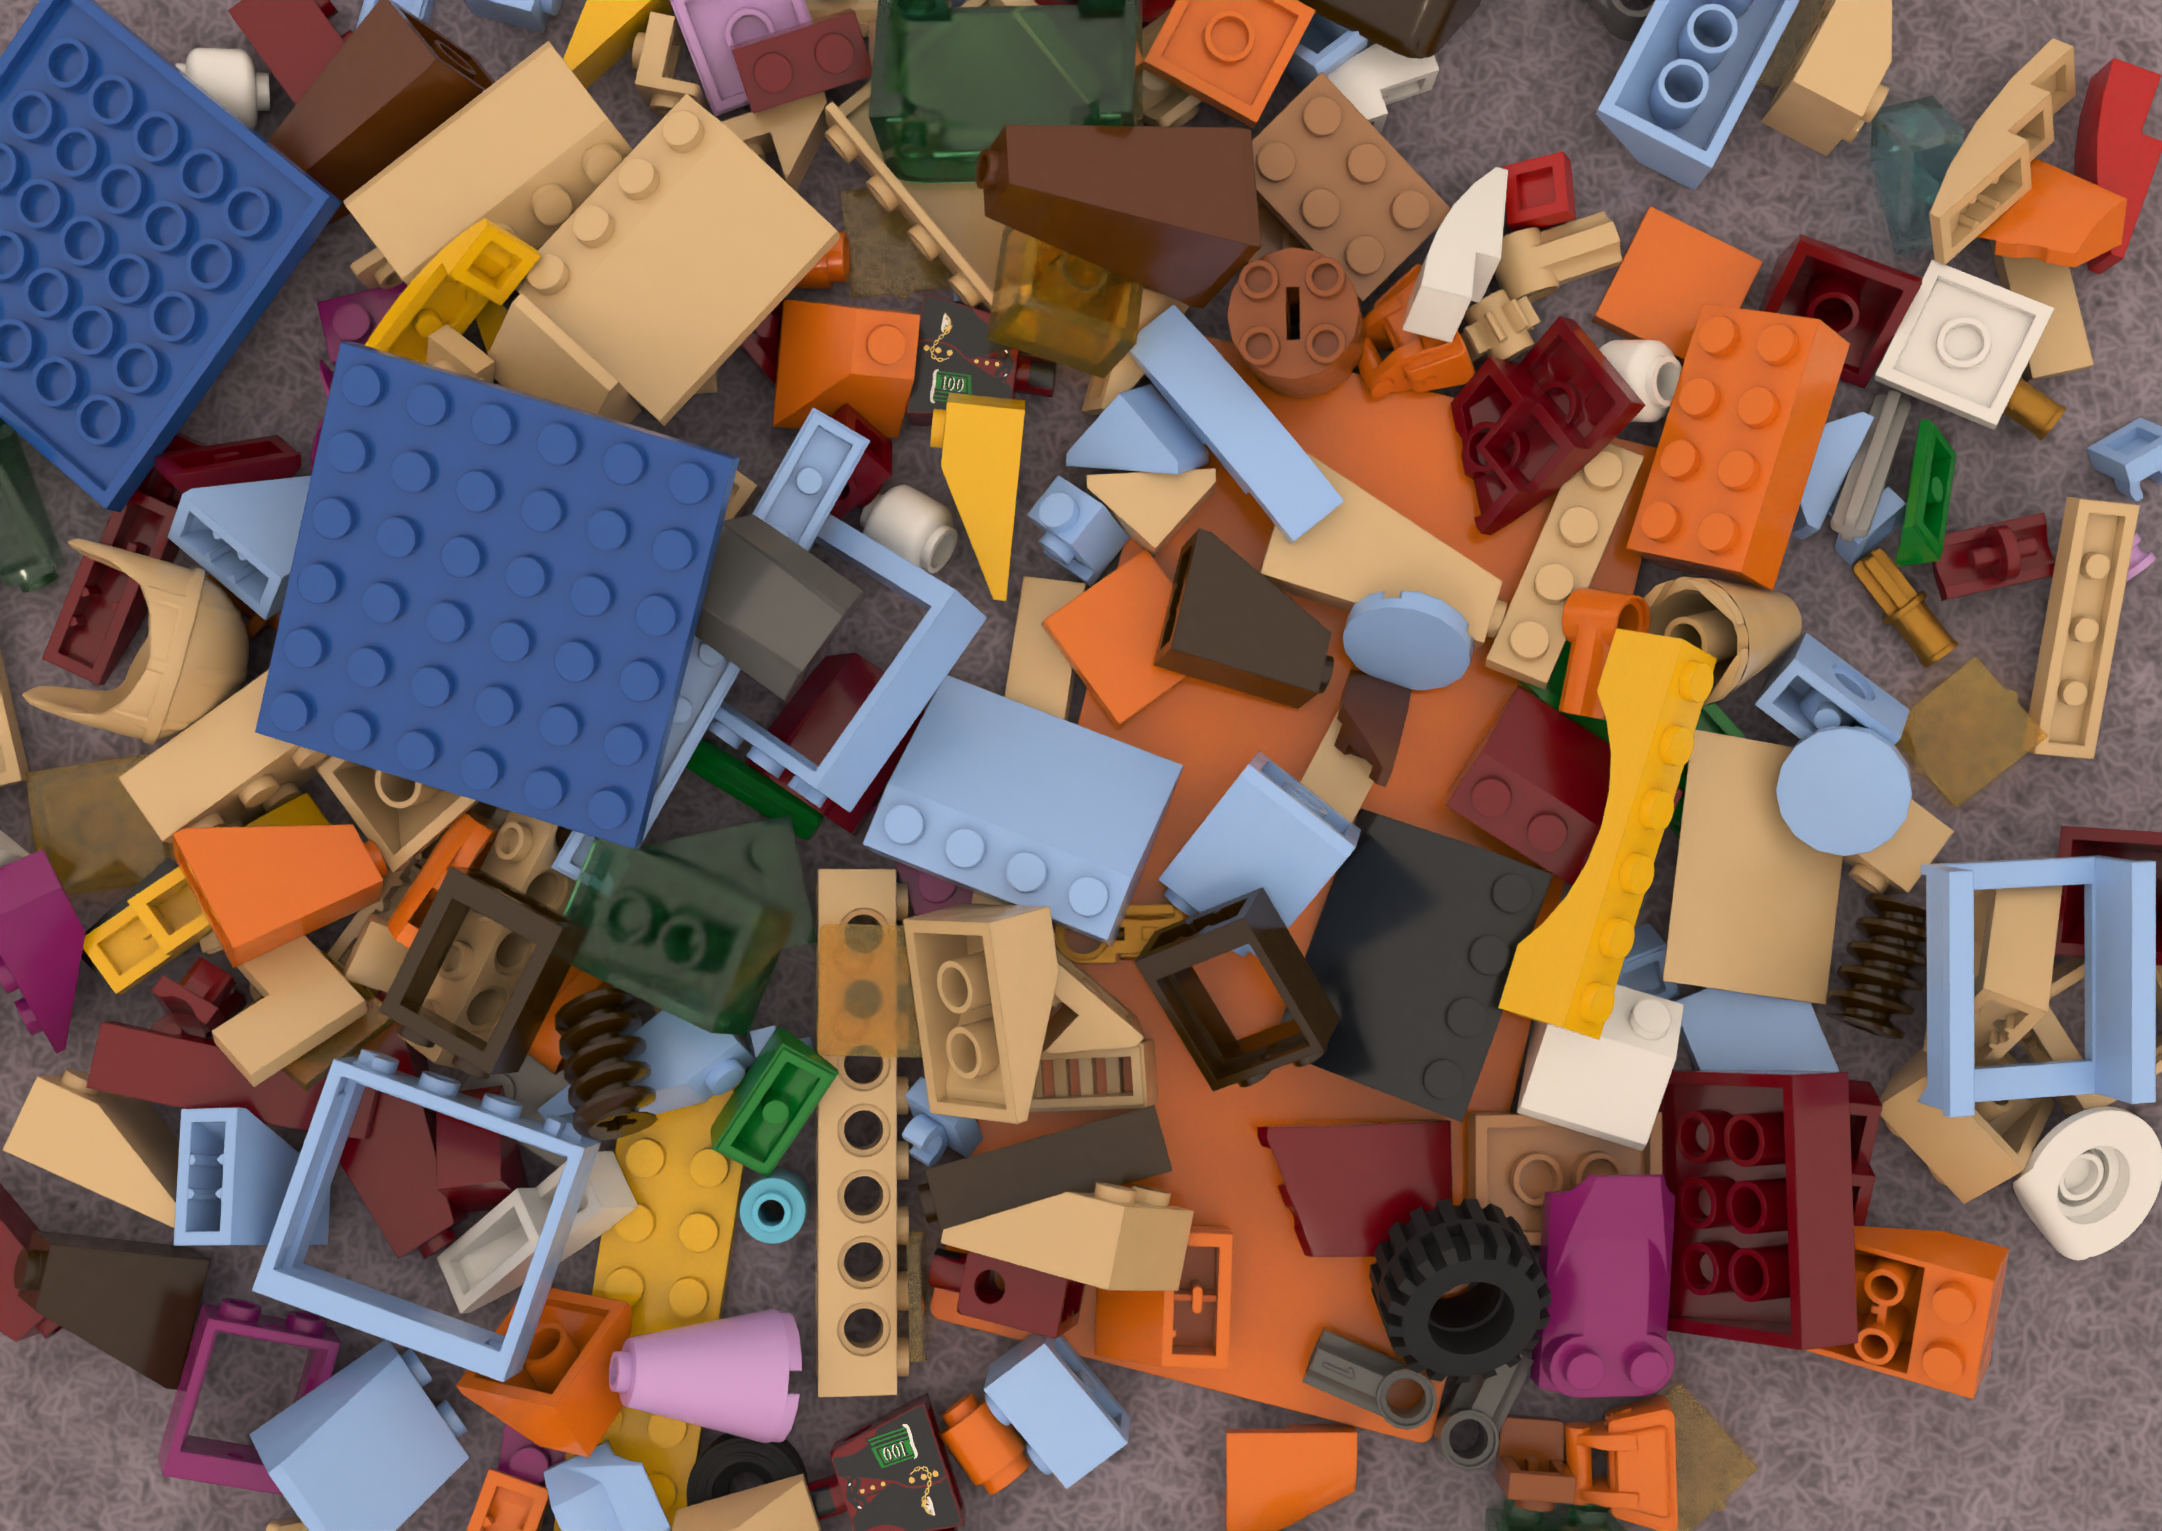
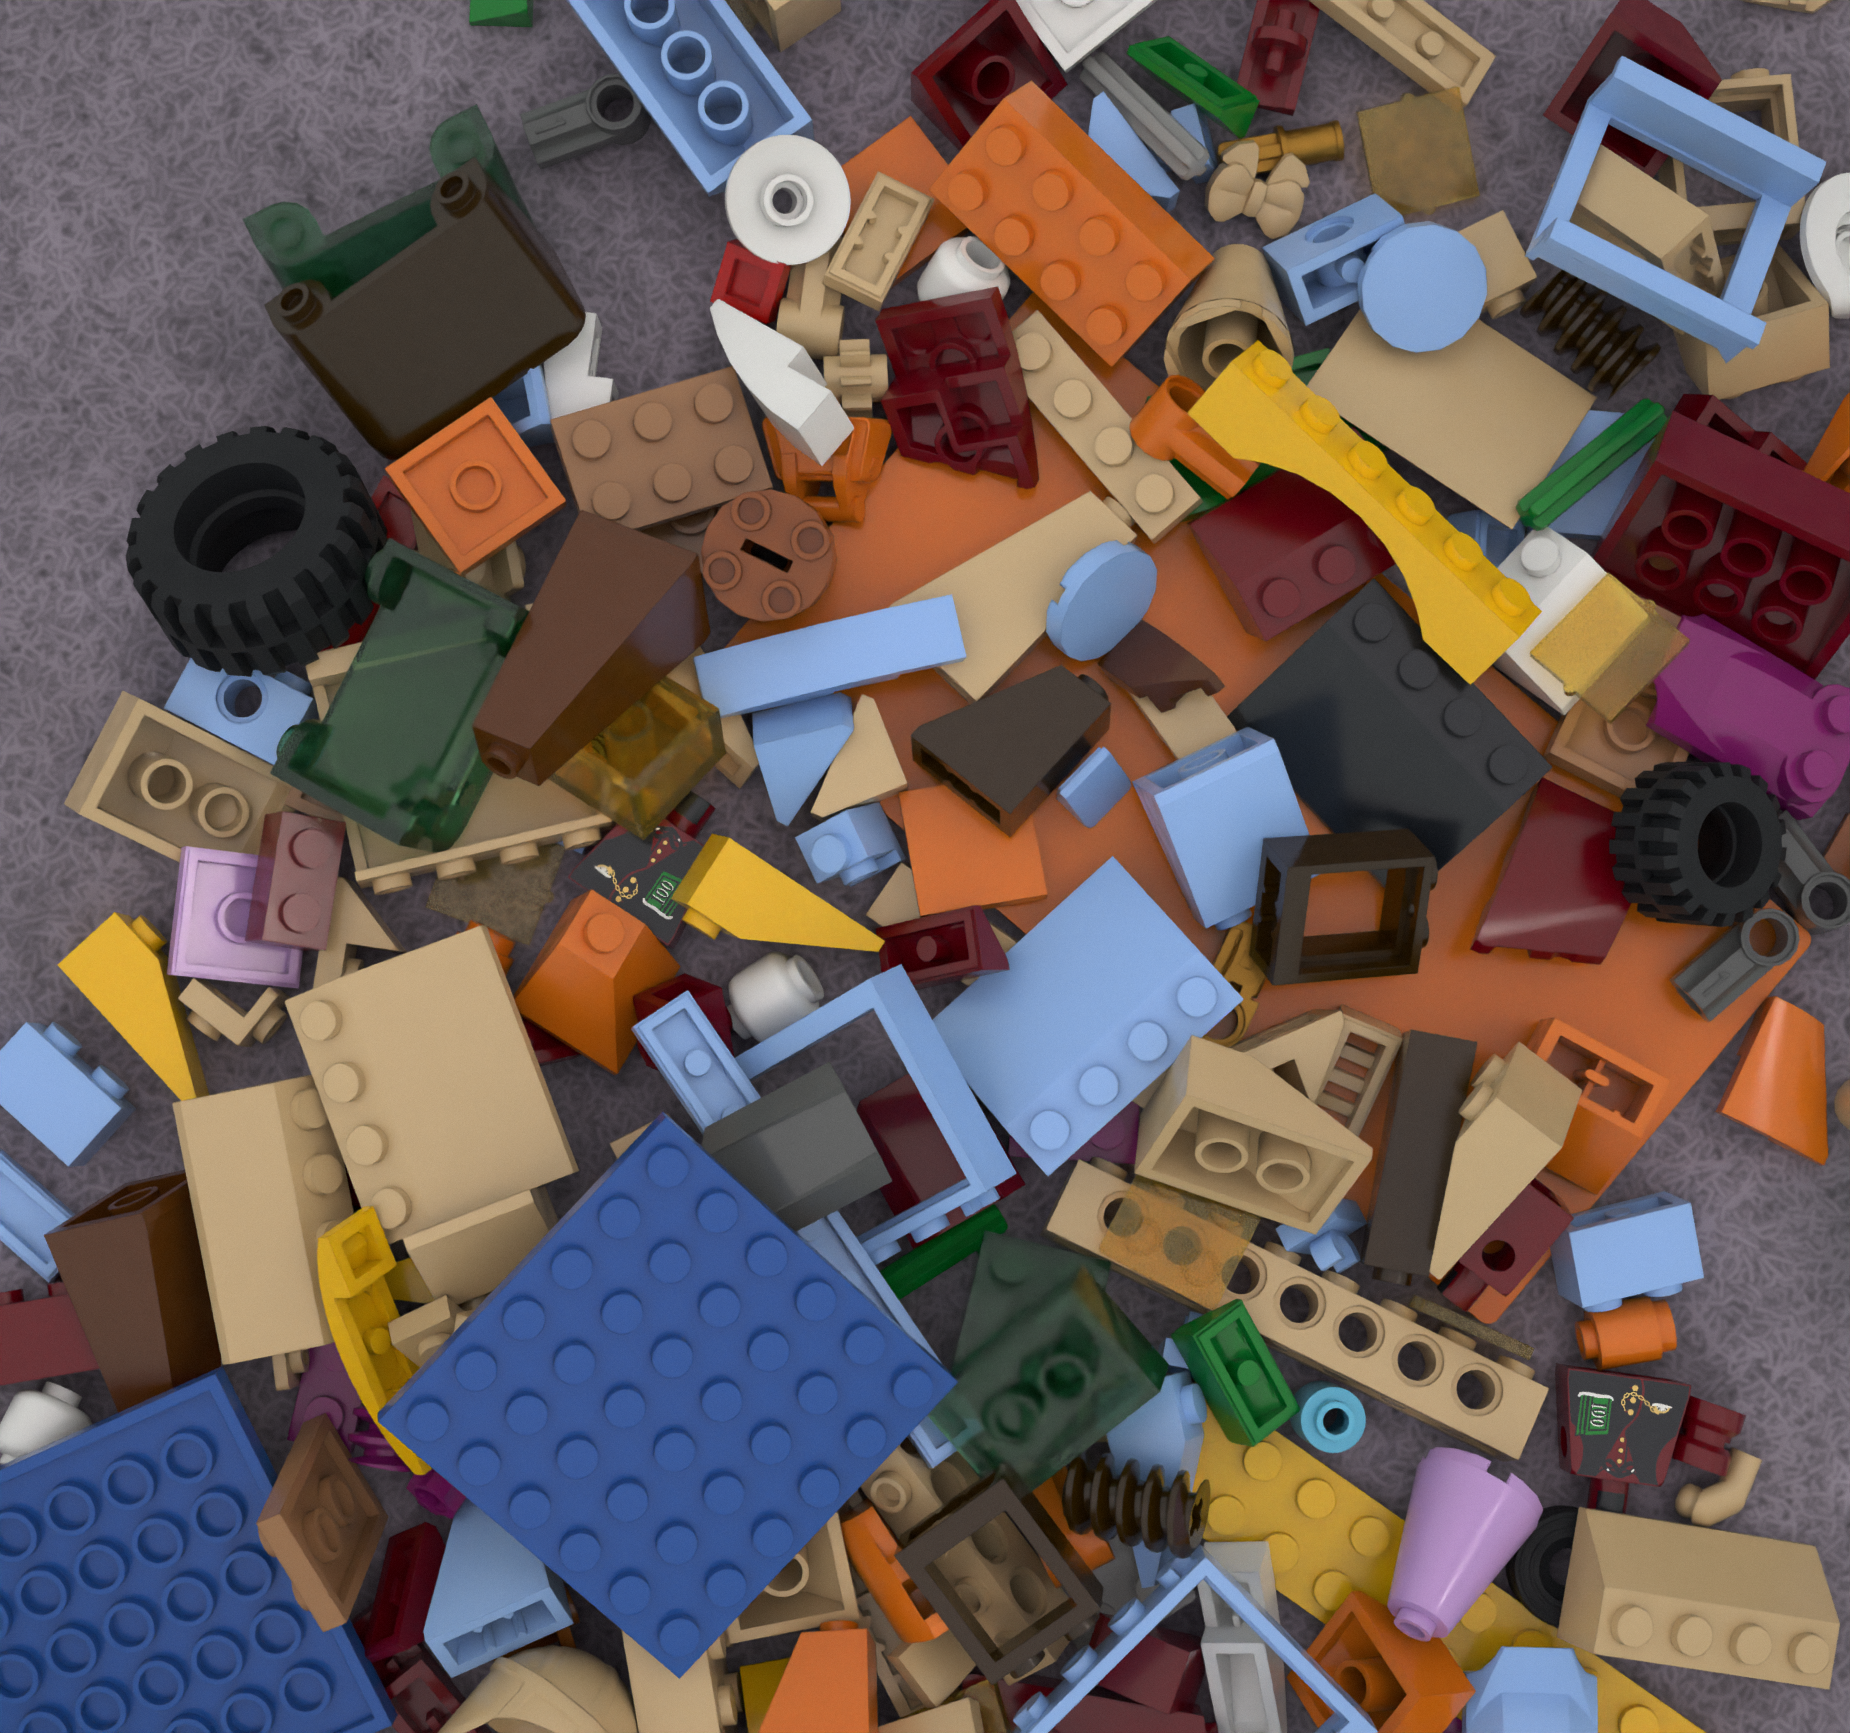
camera: 65 degrees left, 0 degrees up
(248, 357) = (322, 1523): none -> medium nougat plate
(1023, 654) = (943, 947): none -> dark red slope
(1237, 720) = (1094, 788): none -> light blue slope
(1598, 1121) = (1609, 648): none -> clear yellow piece
(1633, 285) = (878, 241): none -> tan plate
(1661, 188) = (817, 193): none -> white dish
(1759, 1025) = (1591, 465): none -> green axle
(1853, 623) = (1236, 190): none -> tan piece

